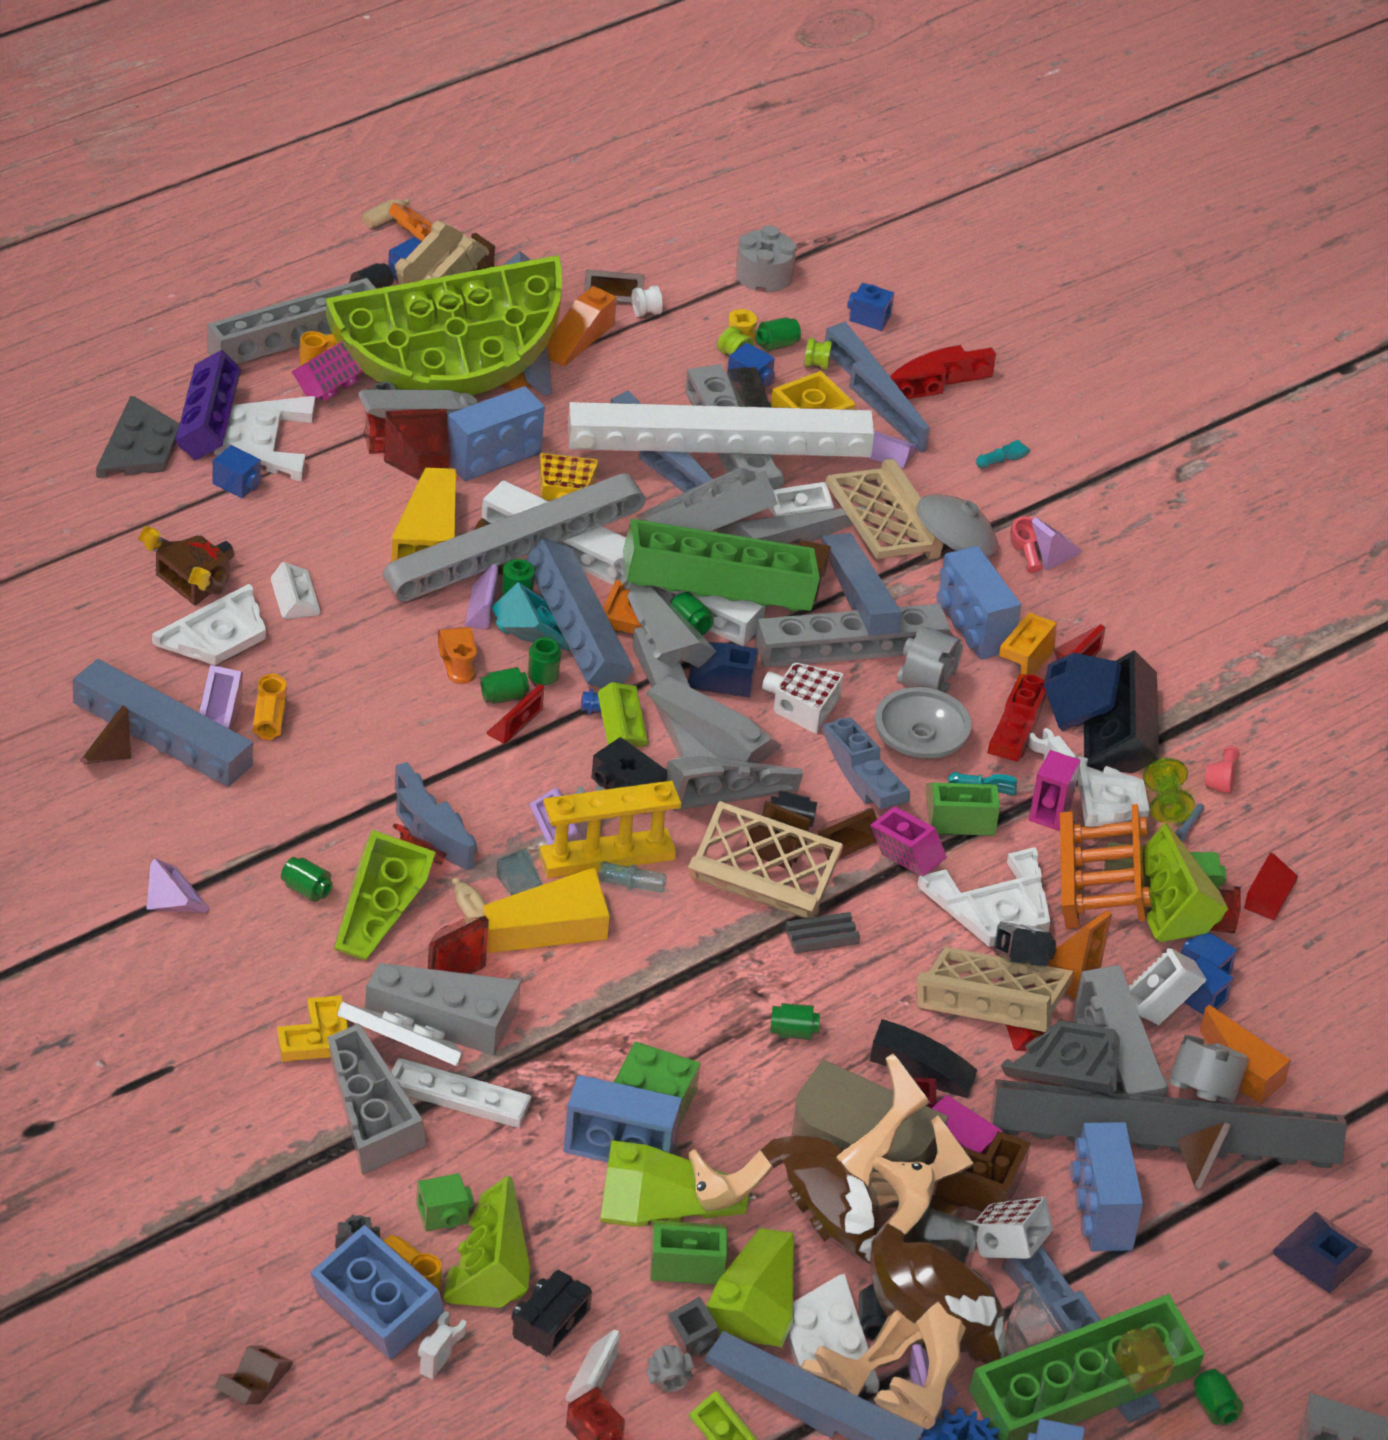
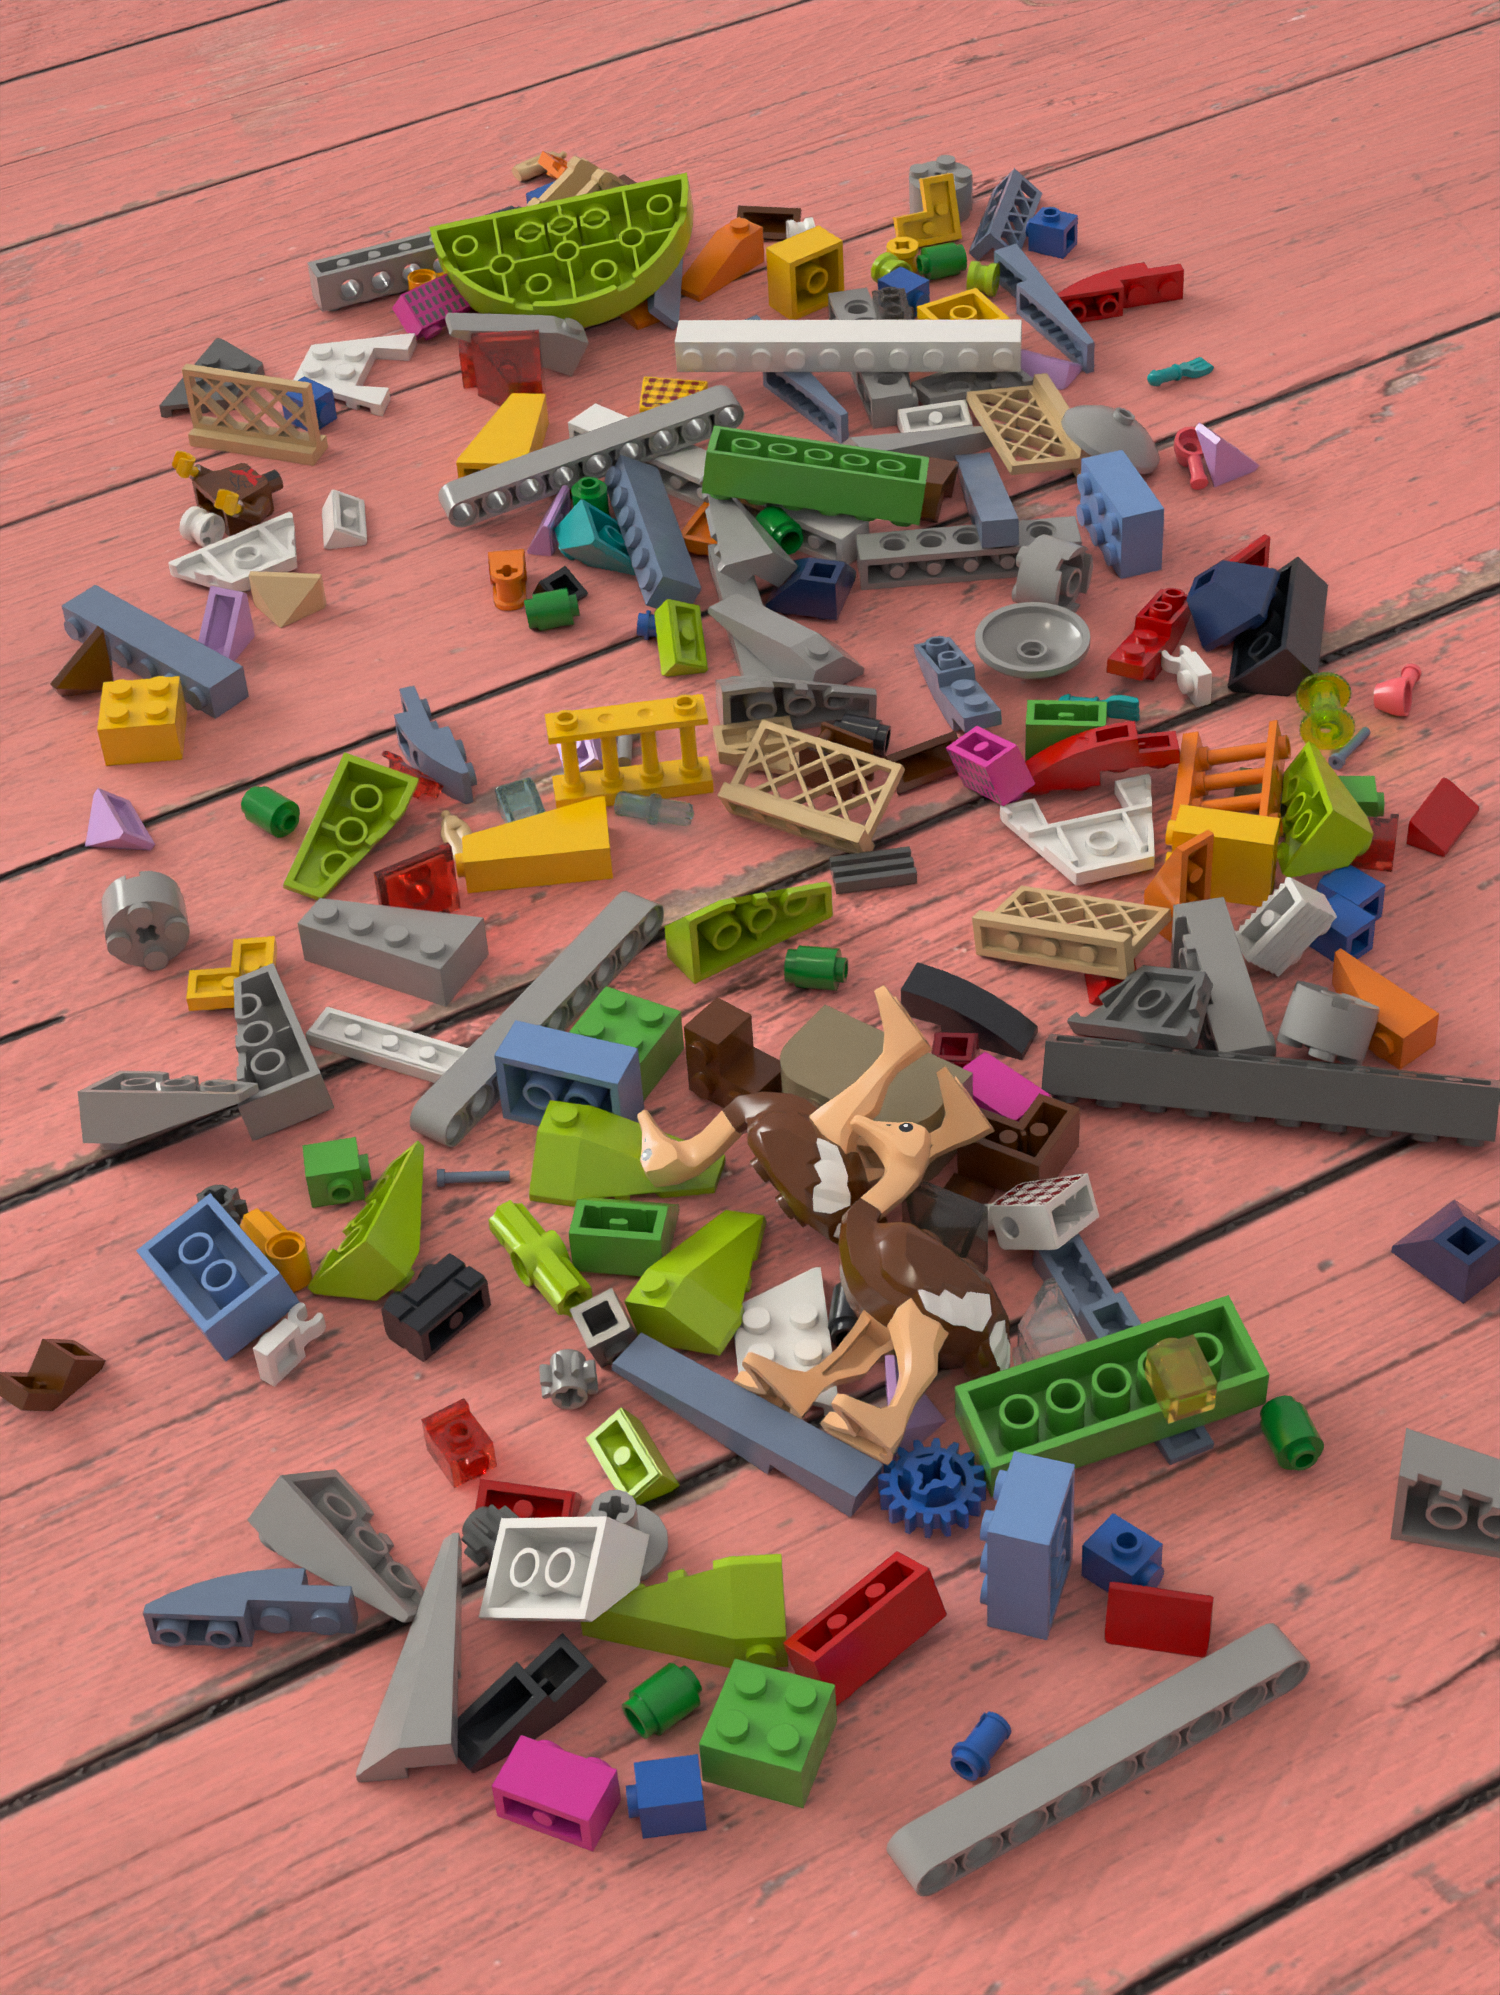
camera: 15 degrees right, 0 degrees up
(171, 597) = (201, 526): none -> white wheel
(172, 792) = (142, 720): none -> yellow brick
(194, 503) = (253, 437): none -> tan fence
(208, 405) = (295, 336): dark purple brick -> none
(232, 982) = (145, 920): none -> light grey brick
(262, 661) = (286, 595): none -> tan slope
(270, 706) = (279, 633): light orange piece -> none
(270, 1147) = (148, 1101): none -> light grey wedge
(401, 1029) = (331, 973): white wing -> none
(495, 433) = (596, 358): medium blue brick -> none
(504, 659) = (562, 579): none -> black slope
(518, 716) = (561, 639): red slope -> none
(544, 661) = (600, 582): green brick -> none
(550, 1203) = (471, 1177): none -> sand blue piece
(582, 1055) = (552, 1000): none -> light grey beam
(595, 1365) = (483, 1373): white slope -> none
(624, 1271) = (539, 1257): none -> lime piece
(625, 766) = (668, 681): black brick -> none
(663, 347) = (804, 272): none -> yellow brick
(697, 813) = (734, 739): none -> tan wing
(717, 501) = (835, 414): light grey wedge -> none
(724, 988) = (743, 926): none -> lime wedge
(742, 1107) = (723, 1056): none -> reddish brown brick
(771, 285) = (940, 213): none -> yellow plate
(805, 694) = (901, 614): white torso -> none
(812, 469) = (954, 385): none -> light grey wing
(821, 284) = (1002, 211): none -> sand blue fence
(1008, 826) = (1114, 748): none -> red slope
(1024, 944) = (1114, 878): black brick -> none
(1030, 643) = (1178, 556): light orange panel -> none
(1054, 789) = (1181, 700): dark pink brick -> none
(1106, 1187) = (1175, 1164): medium blue brick -> none
(1109, 795) = (1246, 717): white wing -> none
(1128, 925) = (1242, 851): none -> yellow brick
(1201, 1150) = (1307, 1122): reddish brown slope -> none

